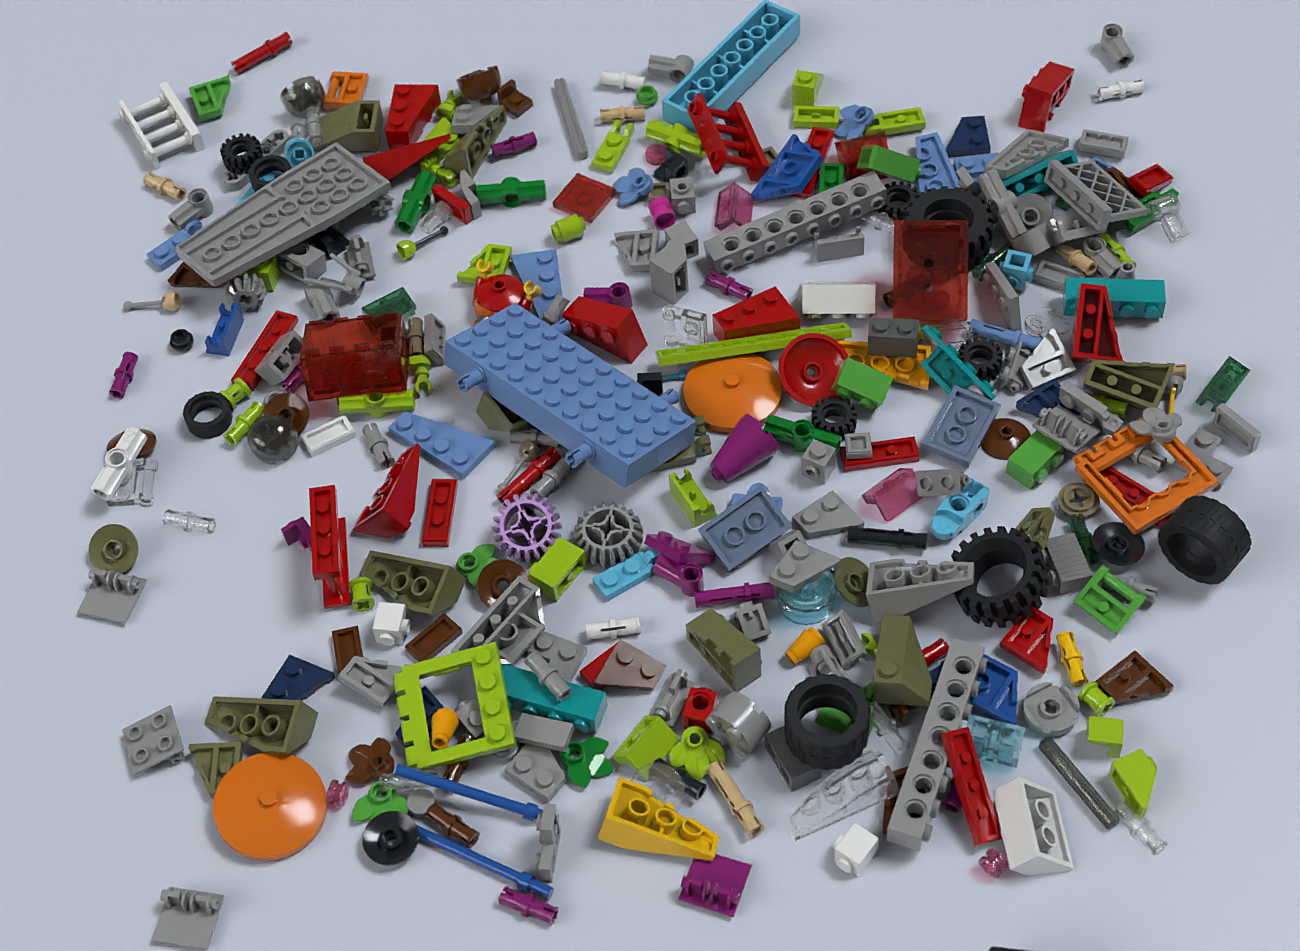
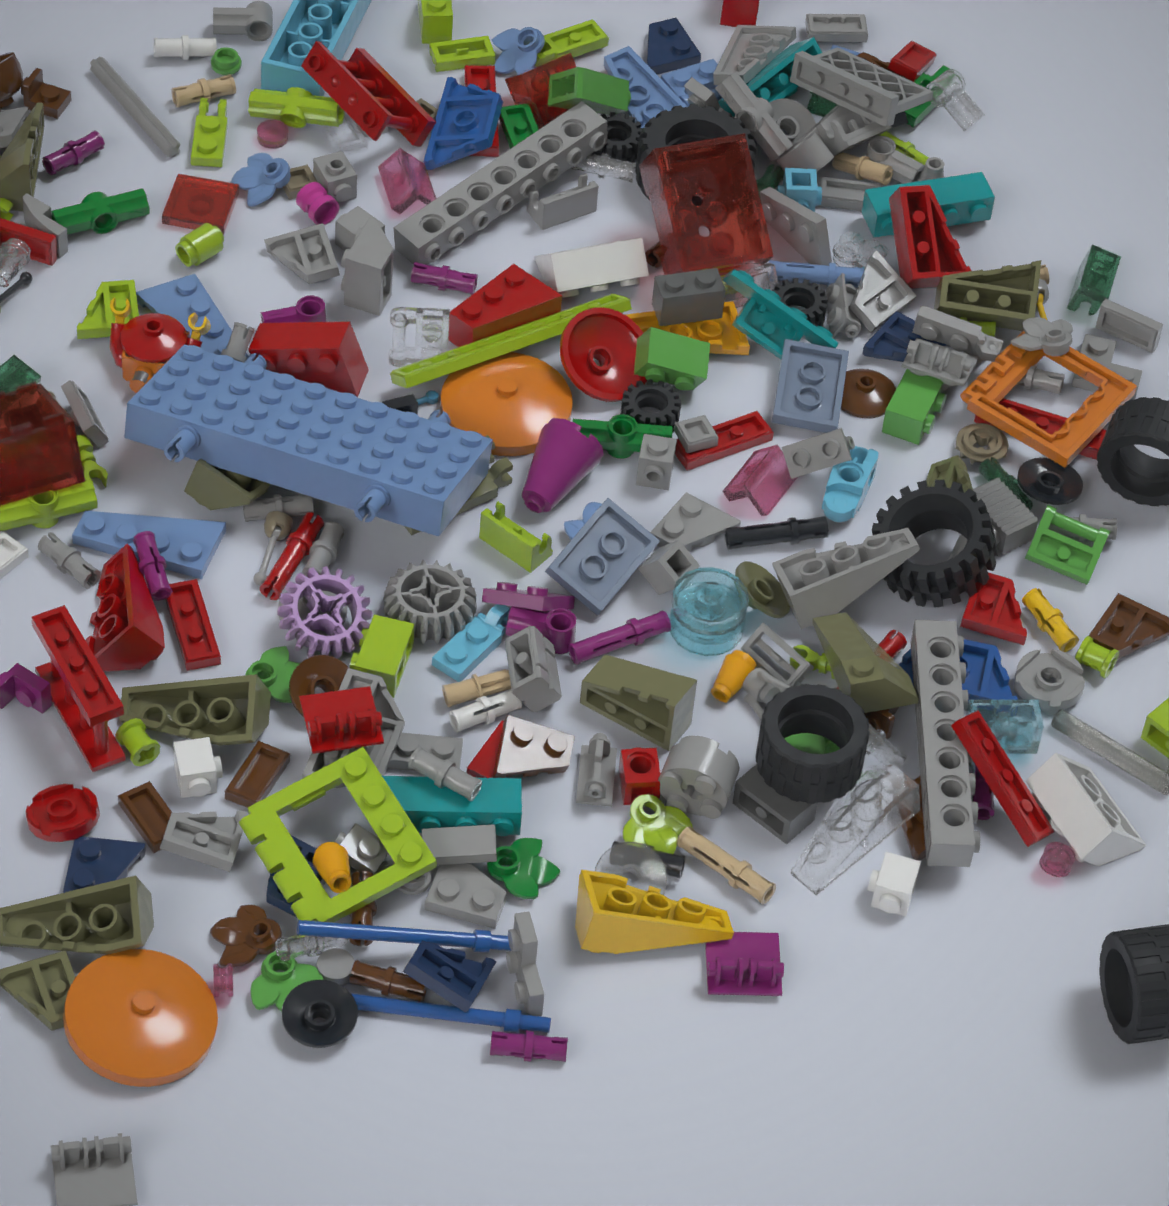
camera: 30 degrees left, 5 degrees down
(289, 635) = (62, 813): none -> red tile
(425, 478) = (152, 565): none -> magenta pin
(492, 832) = (449, 973): none -> dark blue wing
(493, 615) = (341, 720): none -> red hinge
(614, 609) = (476, 687): none -> tan axle
(646, 743) = (588, 829): lime panel -> none
(656, 606) = (533, 669): none -> light grey brick
(674, 166) = (303, 144): black panel -> none
(752, 620) = (657, 655): light grey bracket -> none
(802, 566) = (702, 579): light grey wing -> none
(1106, 732) = (1126, 687): lime panel -> none

